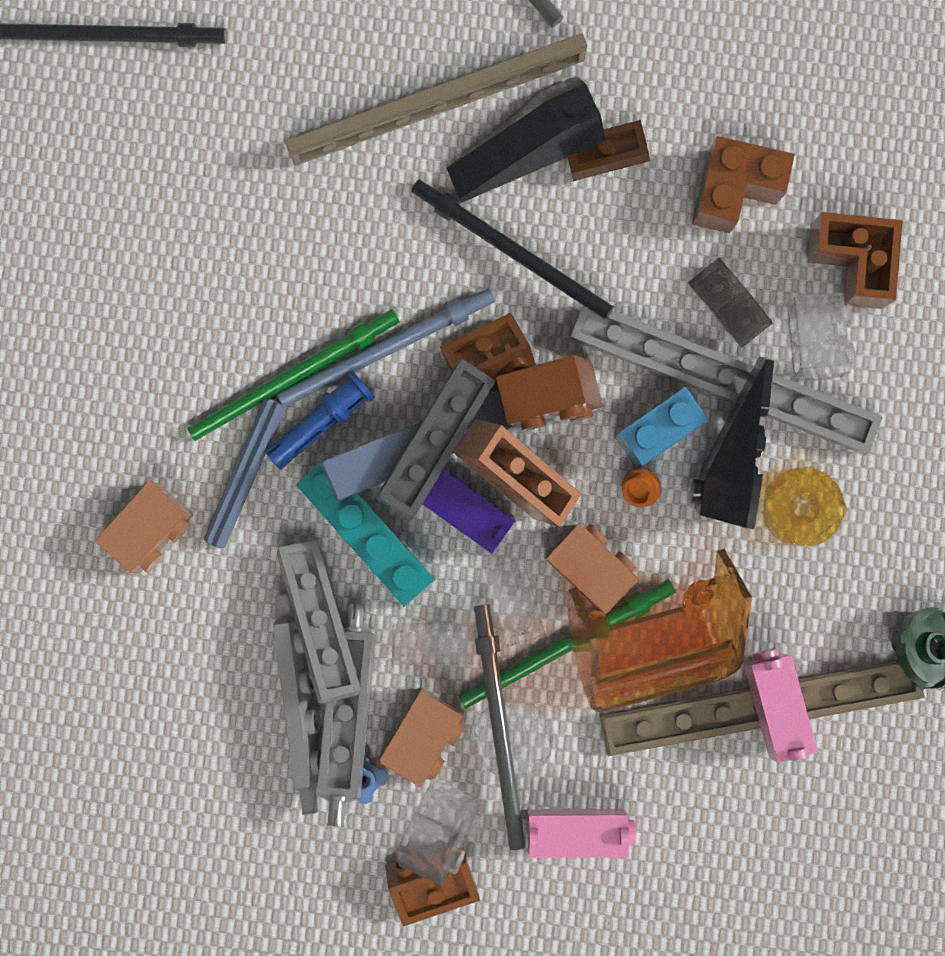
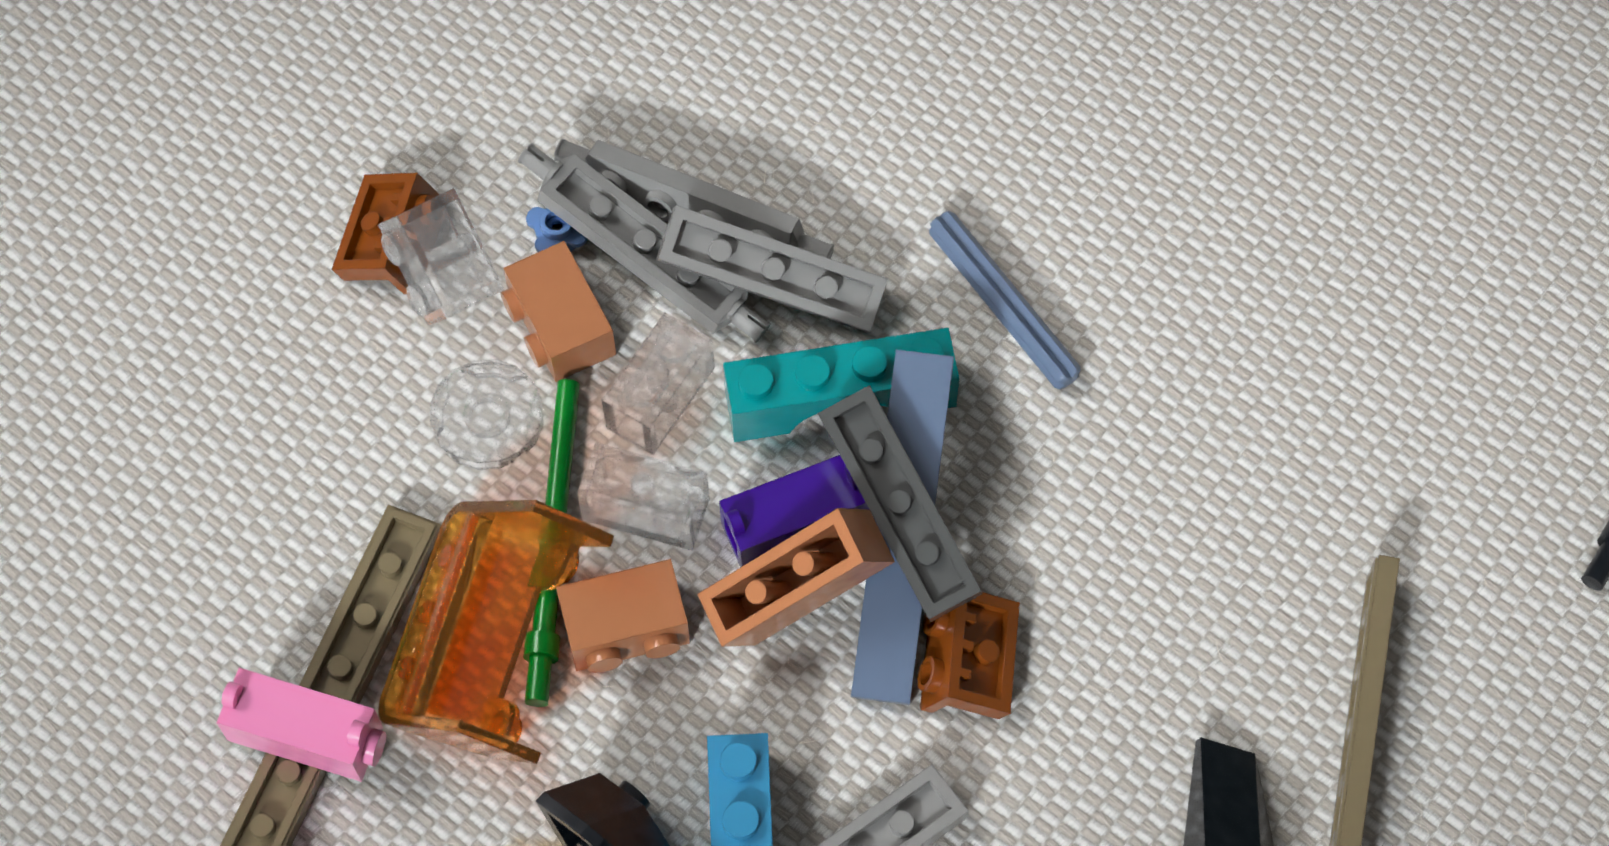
camera: 120 degrees right, 20 degrees down
(145, 528) = (1006, 156): nougat brick -> none
(333, 409) = (1018, 436): blue pin -> none
(360, 335) = (1092, 519): green bar -> none
(449, 208) = (1195, 722): black bar -> none
(455, 312) = (1053, 648): sand blue bar -> none
(487, 646) = (504, 396): dark grey bar -> none
(550, 389) = (869, 686): dark orange brick -> none
(579, 833) = (326, 415): bright pink brick -> none
(641, 487) = (681, 736): orange plate -> none

